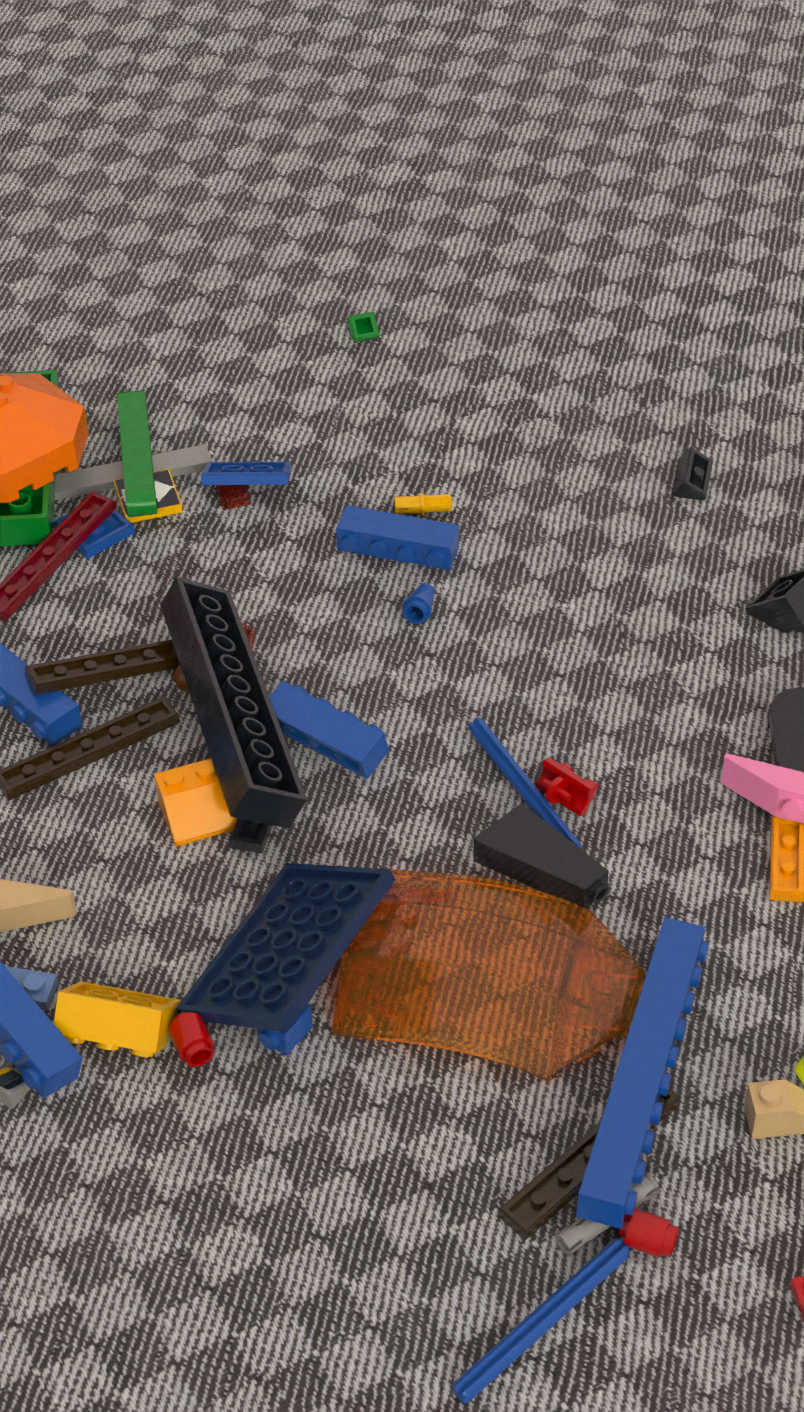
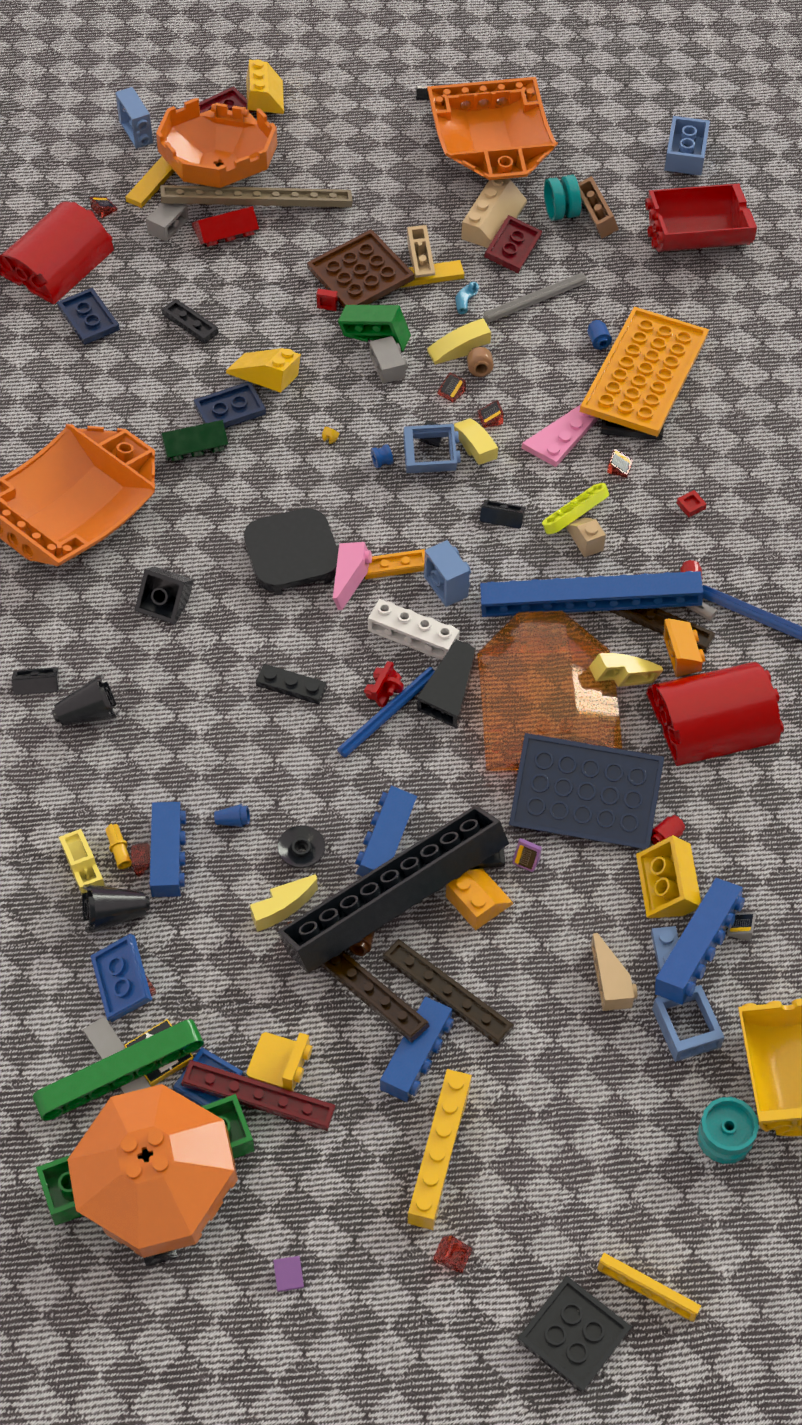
camera: 110 degrees left, 10 degrees up
(79, 581) = (279, 1060): none -> yellow bracket
(234, 873) = (527, 855): none -> slope
(277, 620) = (283, 902): none -> light yellow slope
(337, 472) = (111, 906): none -> black cone
(346, 651) = (301, 838): none -> black dish
(373, 1168) = (717, 712): none -> red cylinder
(392, 505) = (140, 858): none -> clear red slope
(409, 471) = (81, 860): none -> light yellow slope
(479, 1055) = (624, 669): none -> light yellow slope
(496, 1149) = (682, 647): none -> light orange slope
(606, 701) = (291, 684): none -> black plate
(630, 506) = (87, 704): none -> black cone
(653, 839) = (412, 629): none -> white brick
(735, 890) = (447, 573): none -> medium blue brick

